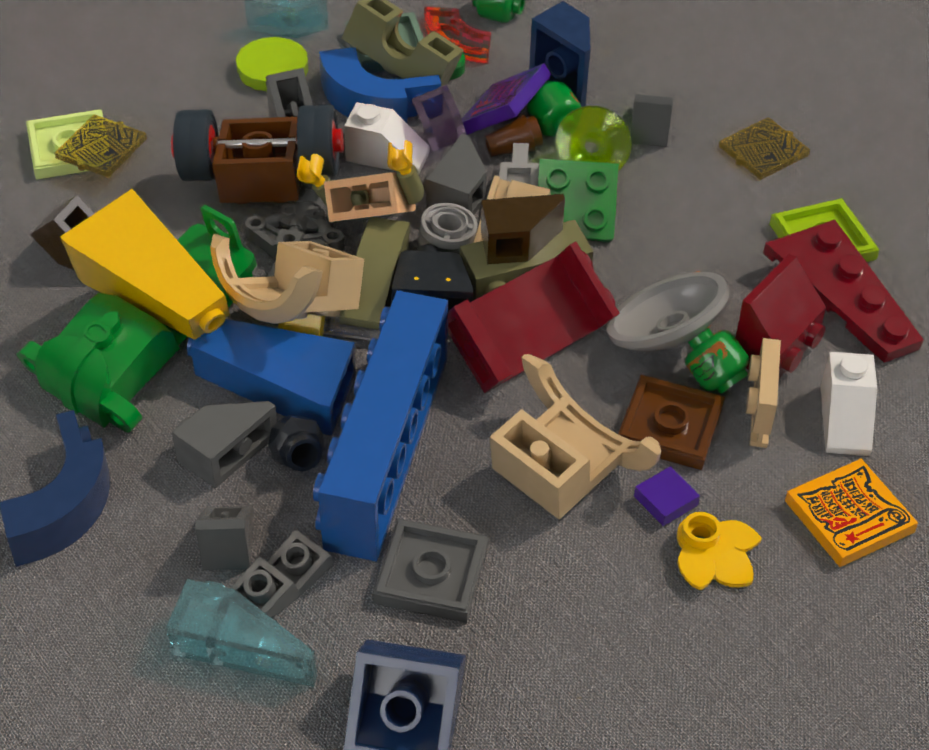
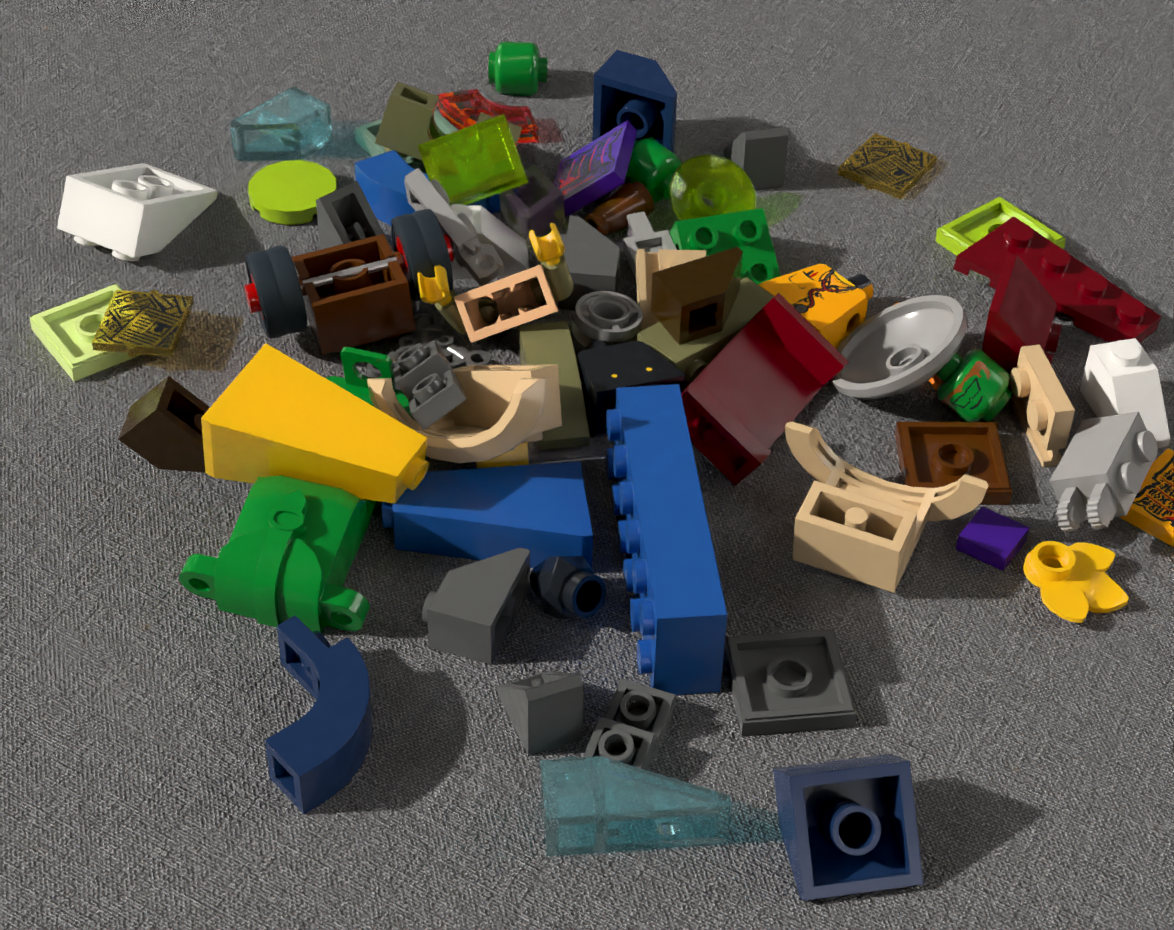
camera: 20 degrees left, 5 degrees down
(142, 50) = (131, 208): none -> white slope
(258, 249) = (428, 383): none -> dark grey slope
(354, 127) = (478, 258): none -> light grey hinge
(399, 72) = (475, 161): none -> clear neon green slope
(629, 257) = (825, 299): none -> light orange torso
(783, 465) = (1102, 470): none -> light grey hinge

